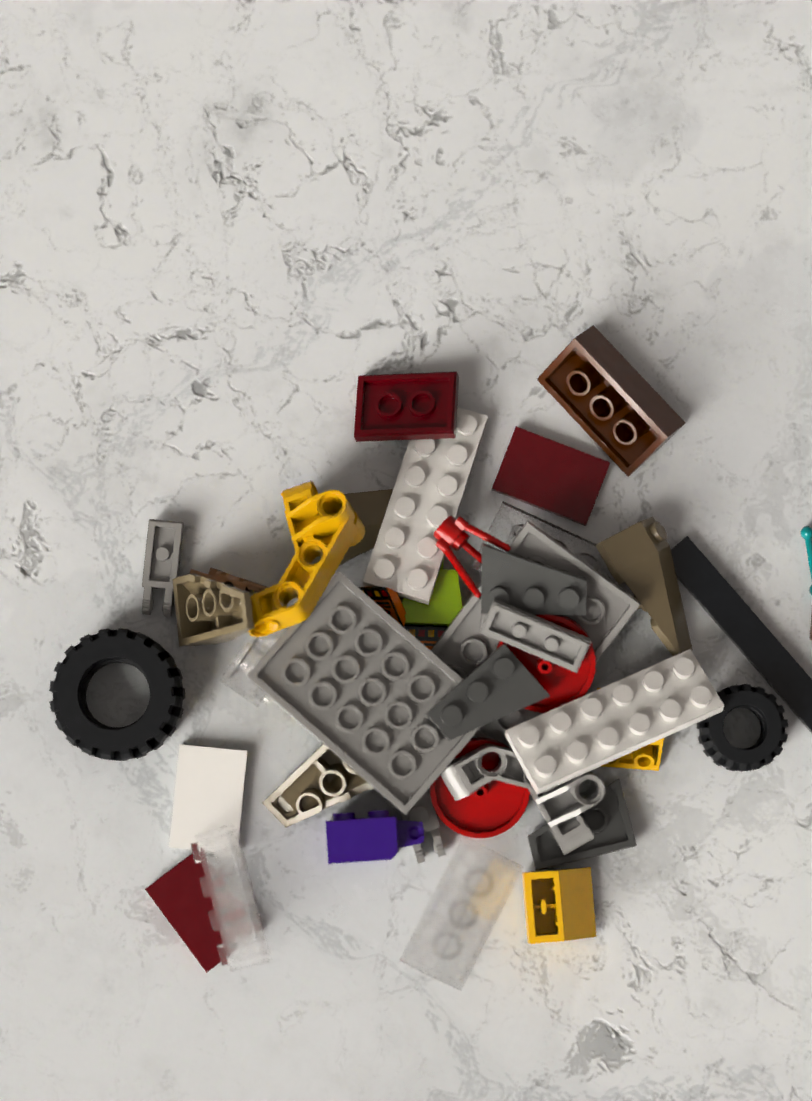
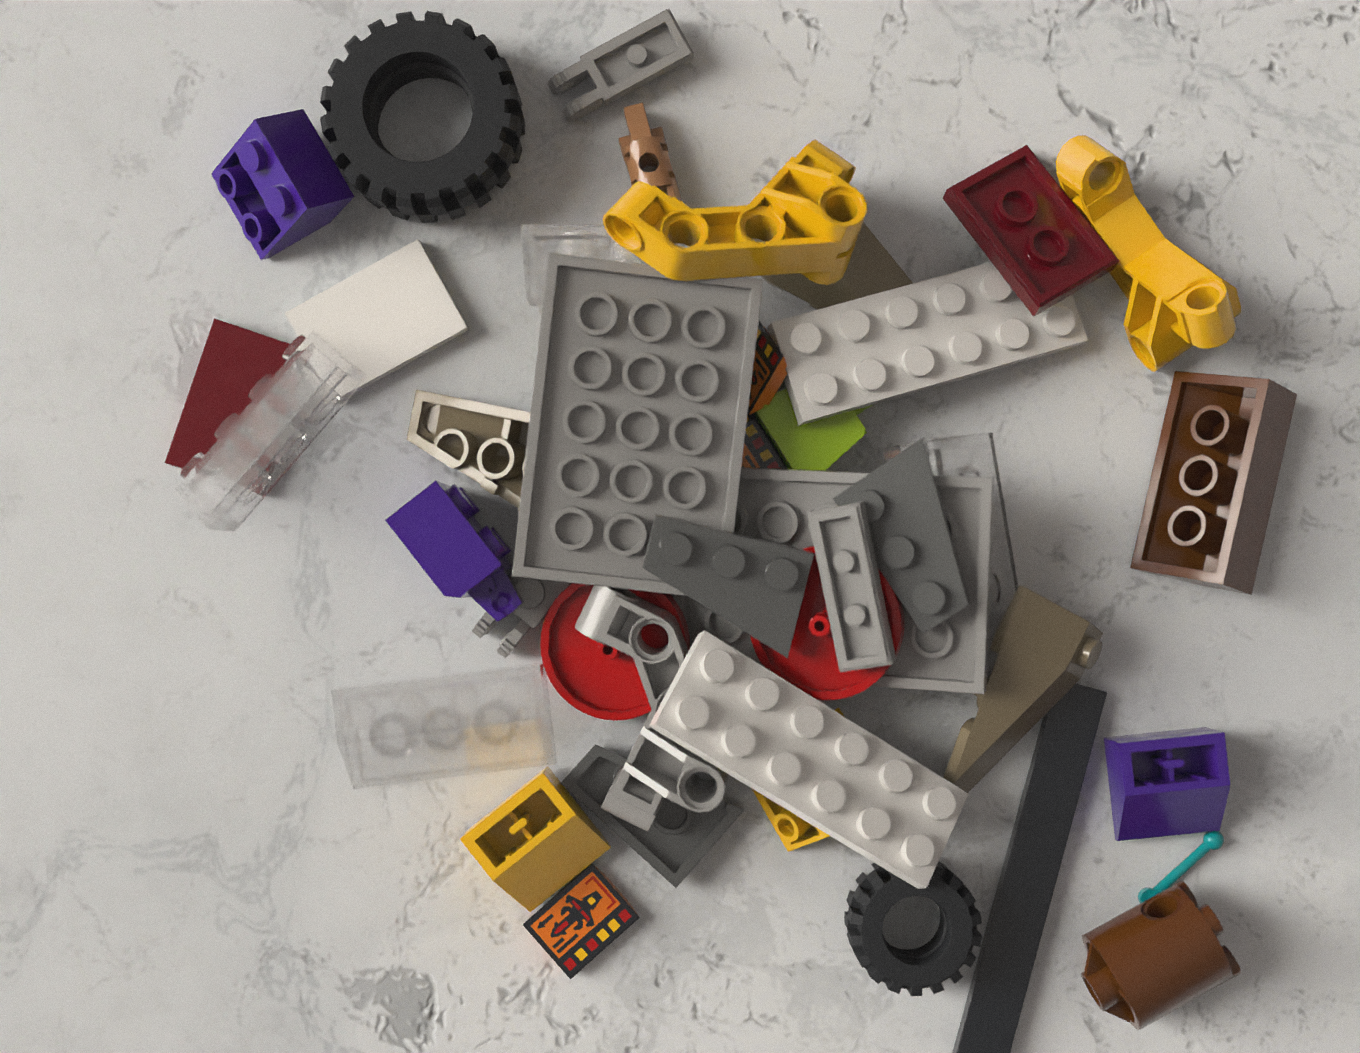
camera: 55 degrees right, 5 degrees up
(96, 799) = (281, 182): none -> dark purple slope
(210, 611) = (601, 154): dark tan wedge -> none
(453, 535) = (908, 394): red plant -> none
(495, 355) = (1168, 292): none -> yellow connector
(550, 476) = (1065, 470): dark red tile -> none
(620, 911) = (581, 920): none -> piece
(758, 538) = (1167, 782): none -> dark purple slope

